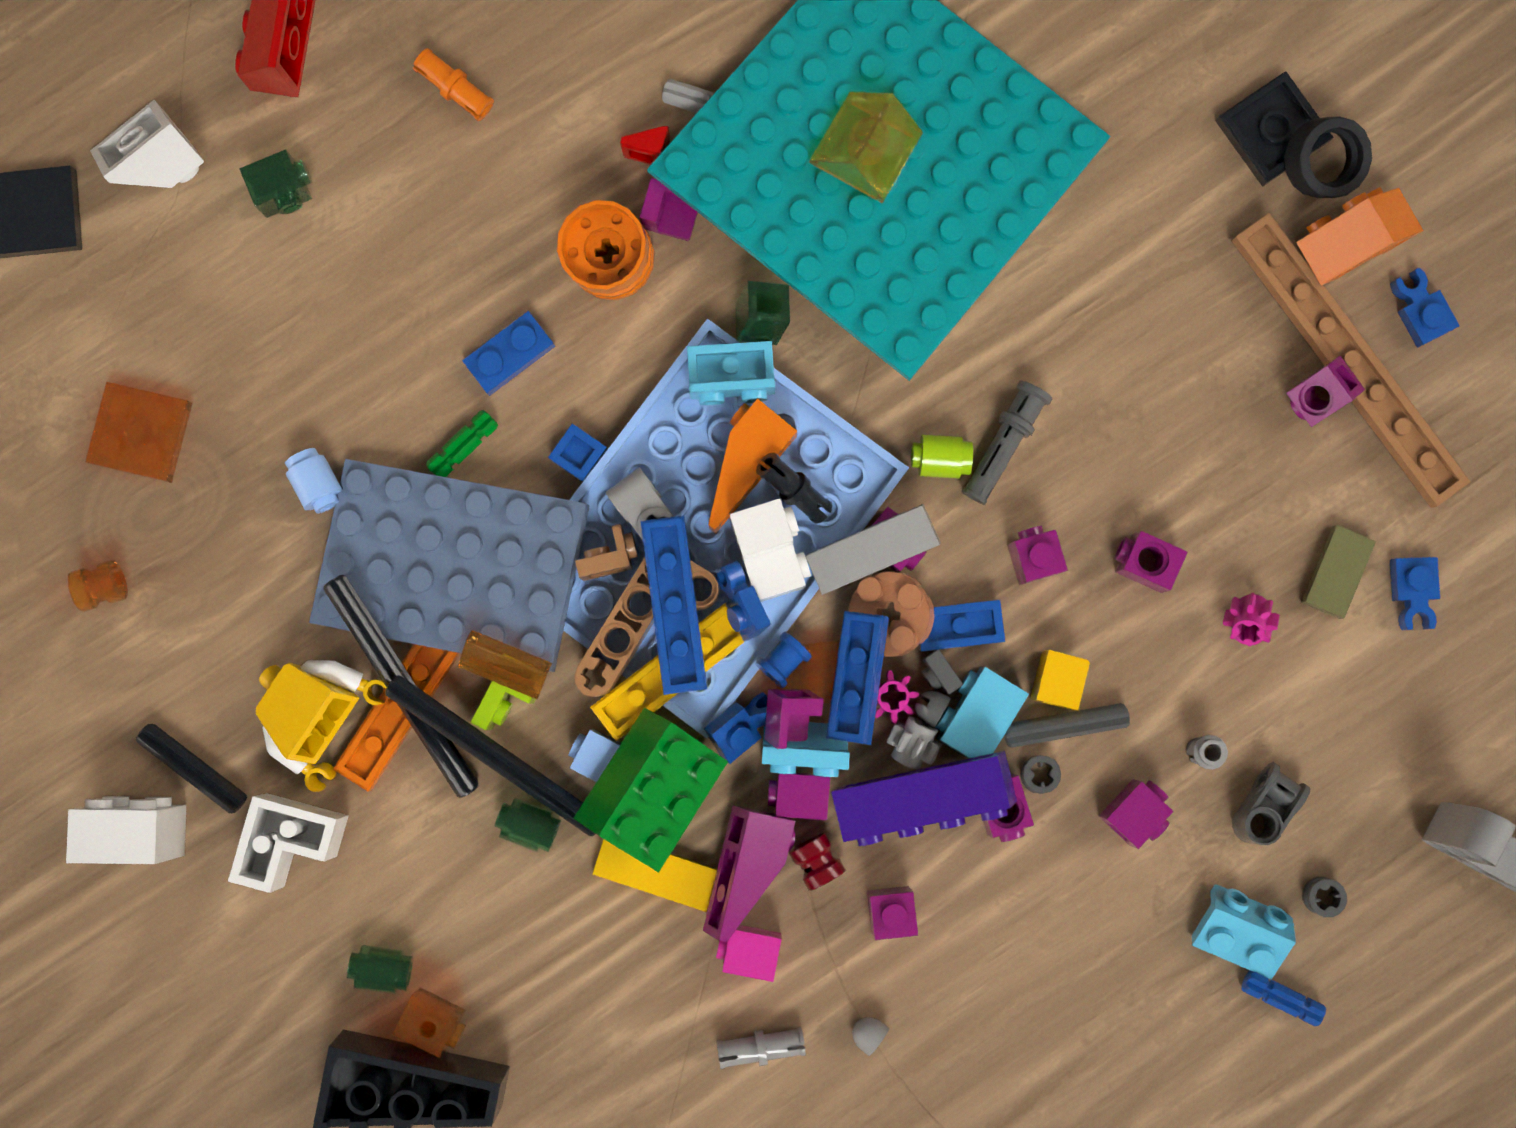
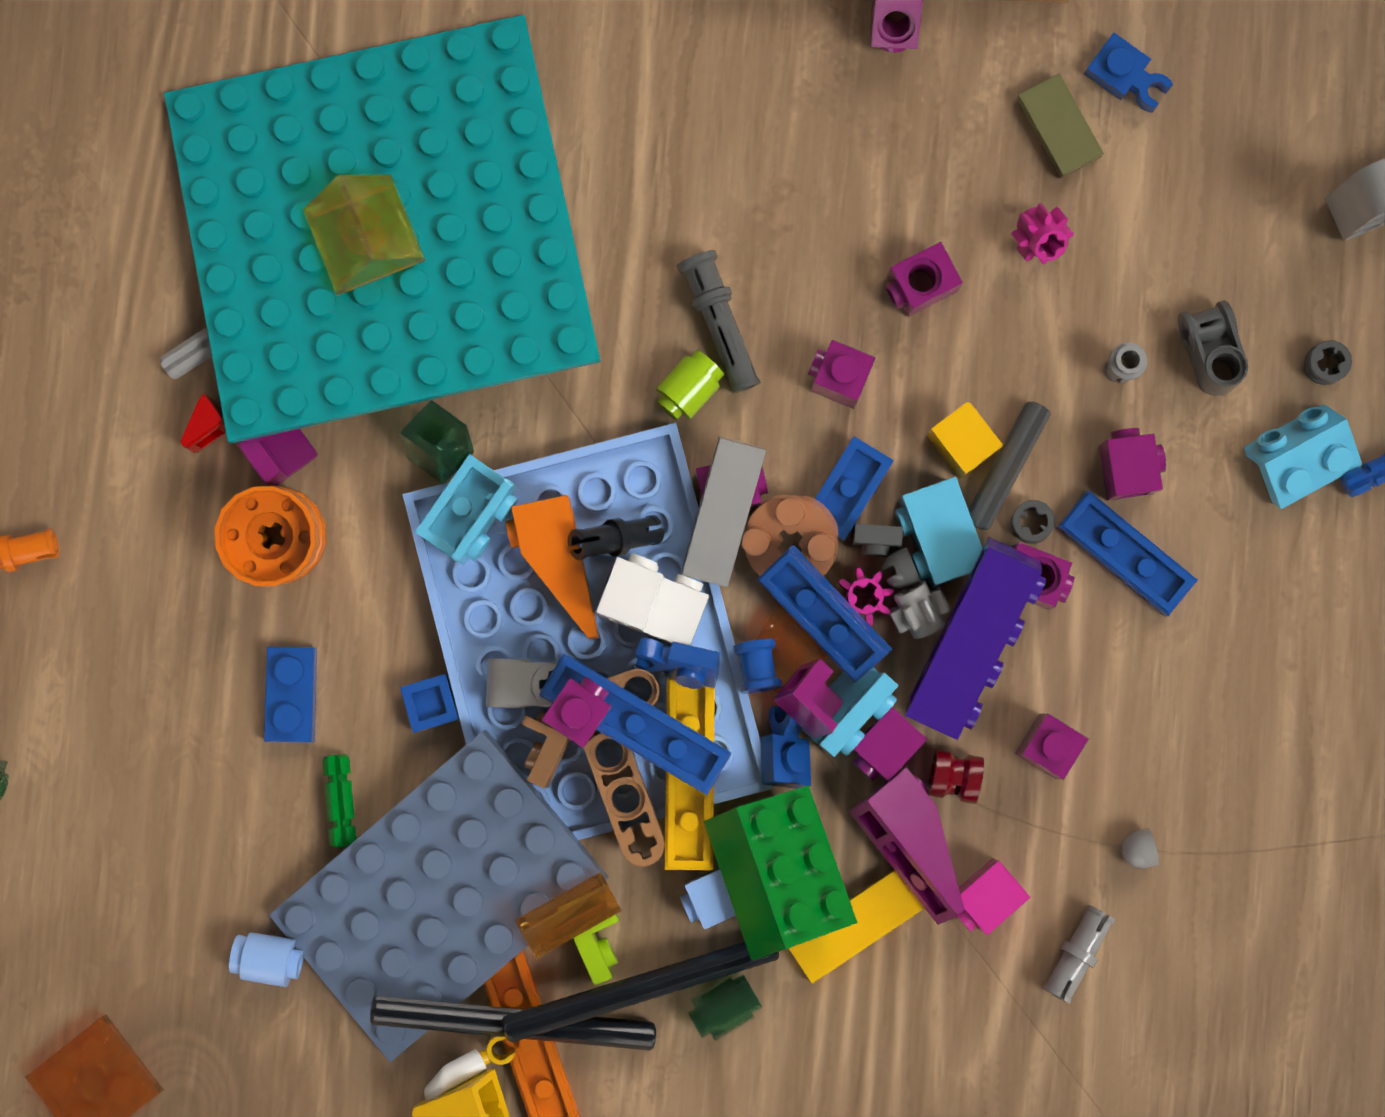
camera: 50 degrees left, 0 degrees up
(650, 556) = (578, 710): none -> magenta brick
(1072, 859) = (1127, 553): none -> blue tile

